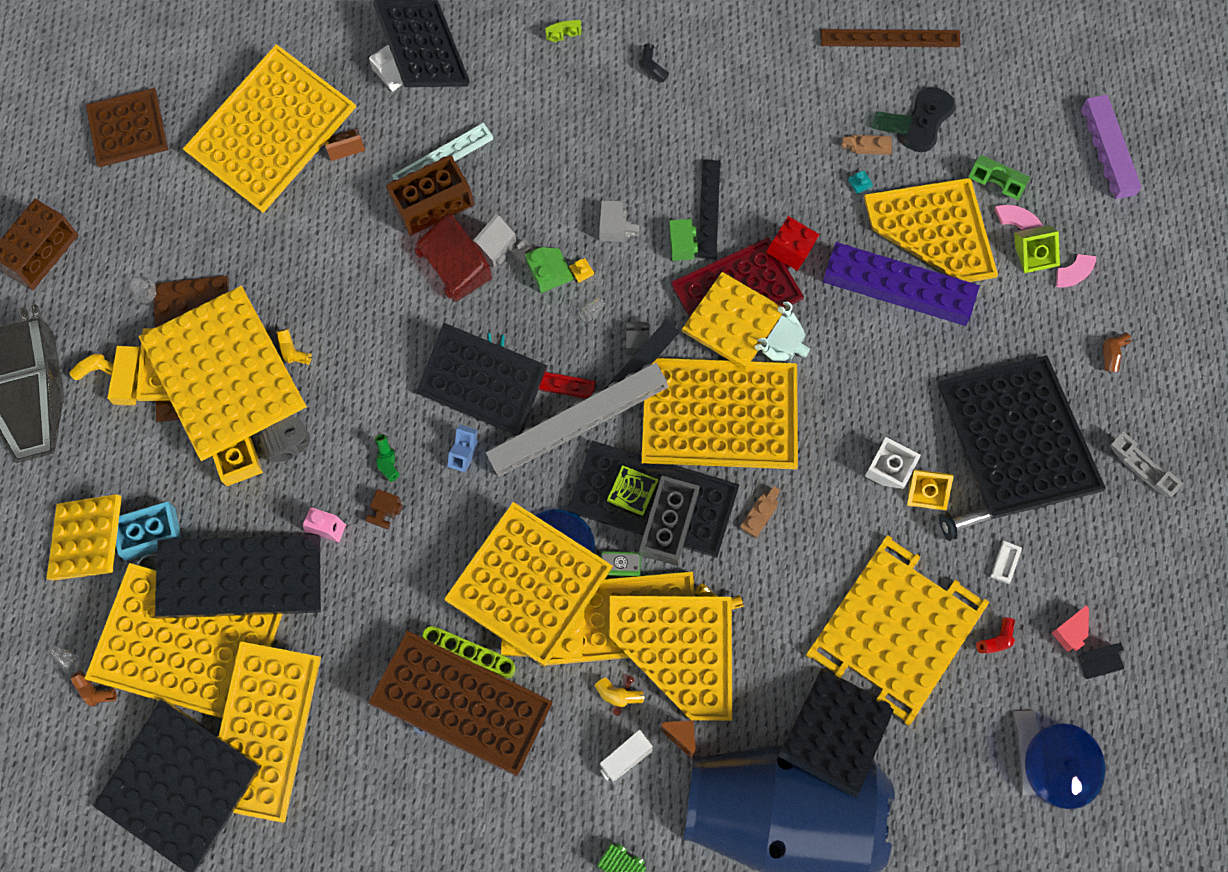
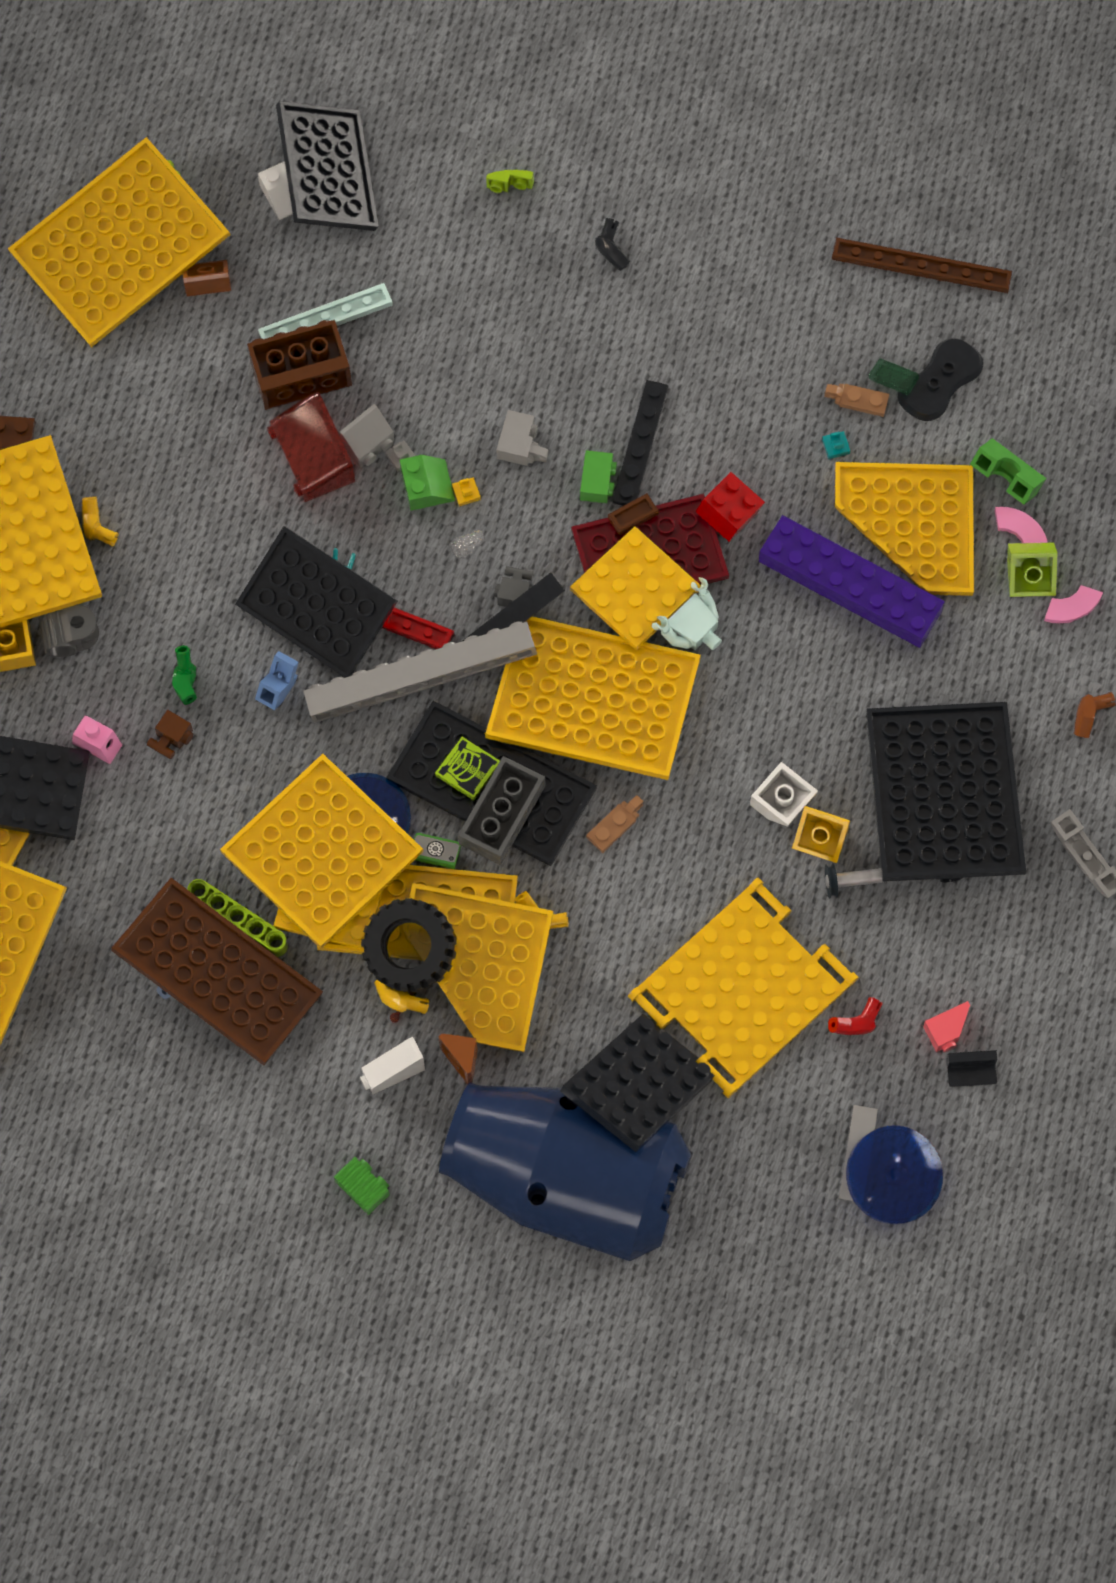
camera: 10 degrees right, 0 degrees up
(591, 656) = (377, 938): none -> black tyre
(718, 263) = (633, 514): none -> reddish brown tile
(1006, 562) = (891, 936): white tile -> none

